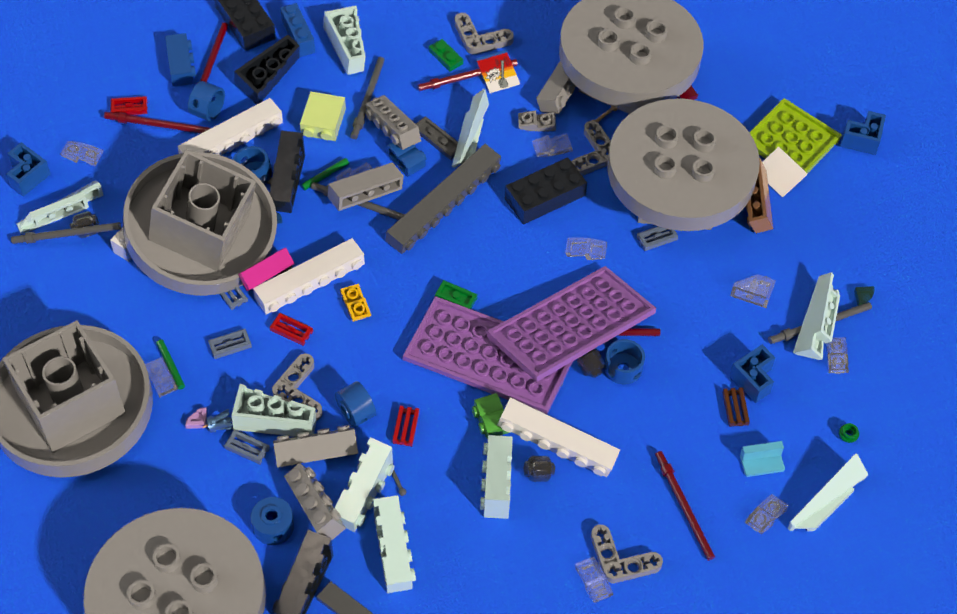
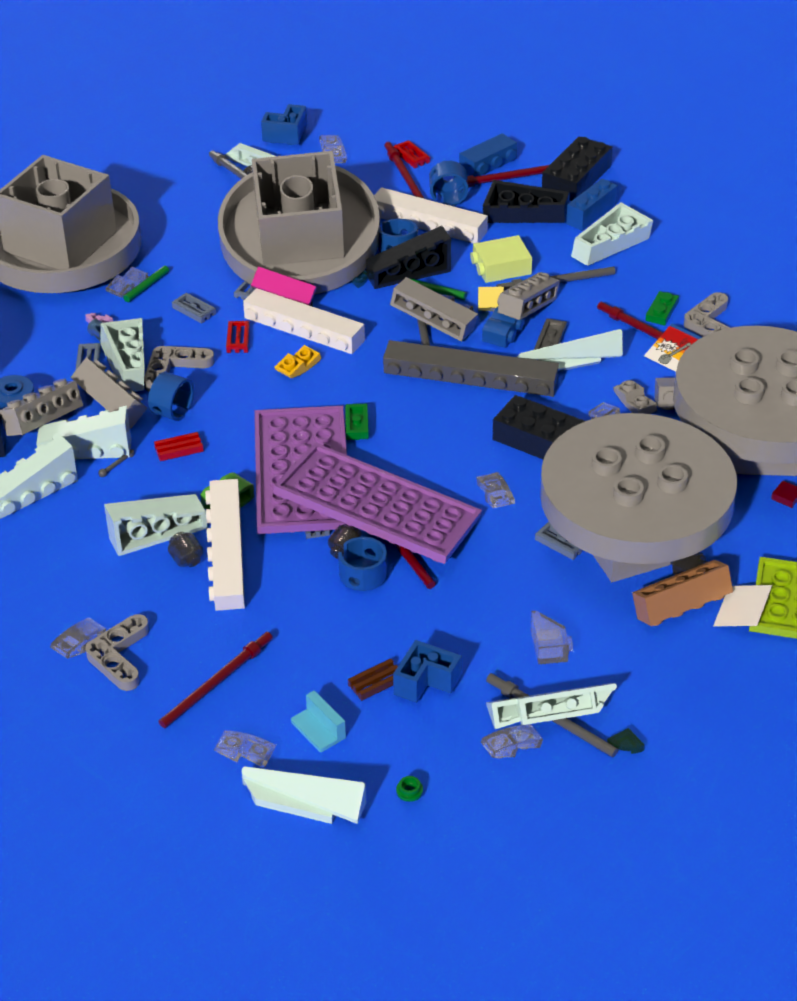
camera: 65 degrees right, 15 degrees down
(372, 146) = (488, 298): none -> light yellow brick

